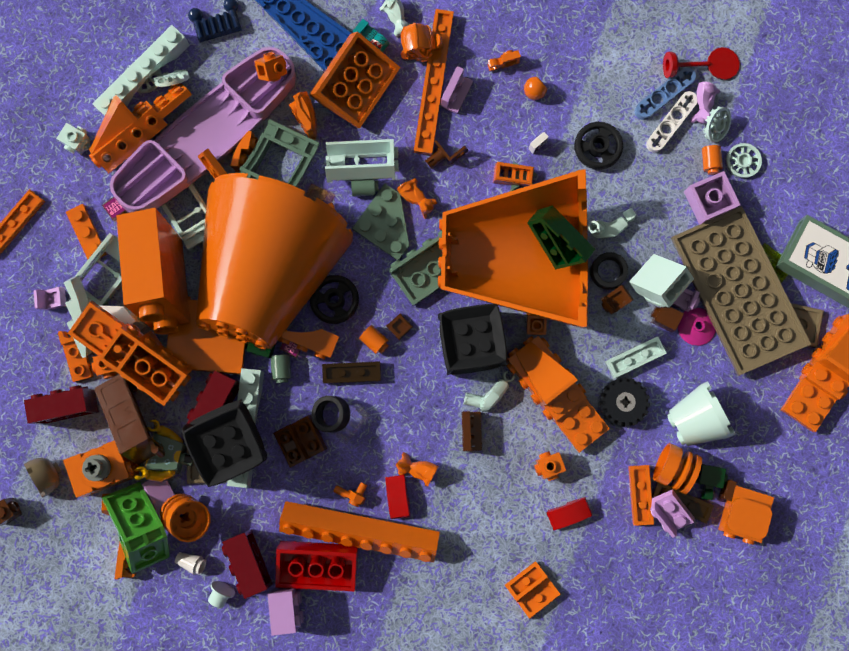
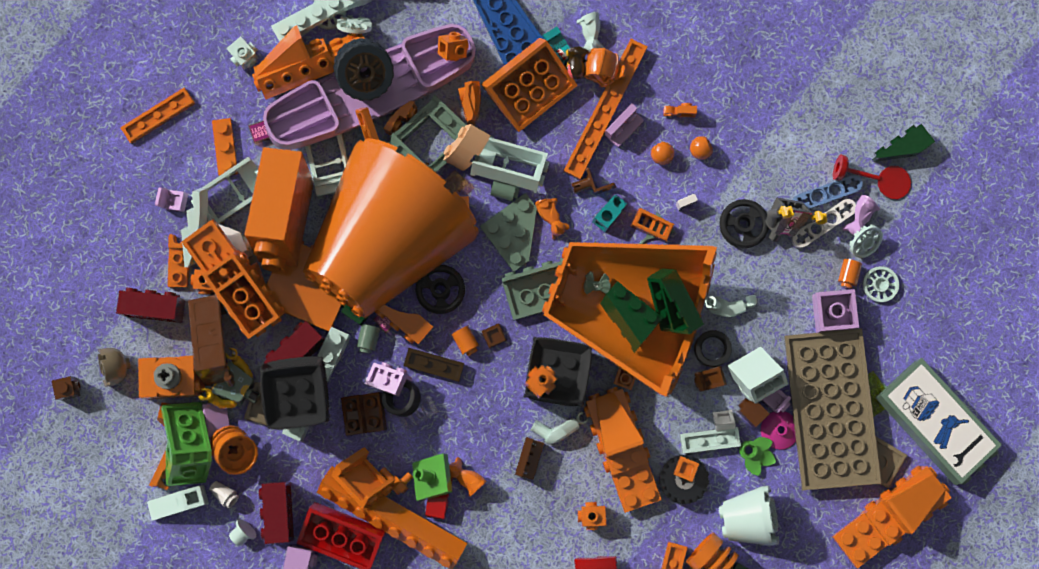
camera: 15 degrees right, 0 degrees up
(149, 585) = (178, 502): none -> light aqua slope
(208, 113) = (365, 84): none -> wheel
(311, 400) = (387, 379): none -> lavender bracket
(316, 150) = (469, 142): none -> light nougat brick
(318, 504) = (362, 479): none -> orange panel
(385, 480) = (432, 477): none -> bright green tile
(392, 45) = (576, 61): none -> dark brown animal
(460, 359) = (536, 386): none -> orange brick
(469, 176) = (609, 213): none -> teal leg
(486, 244) = (591, 285): none -> sand green piece
(500, 105) = (662, 153): none -> orange piece
(523, 263) = (630, 314): none -> dark green wedge
(624, 391) = (686, 469): none -> orange plate
(639, 123) = (789, 216): none -> dark grey torso
(642, 334) = (724, 420): none -> white tile
(686, 356) = (759, 456): none -> bright green plate
(726, 25) = (910, 145): none -> dark green slope

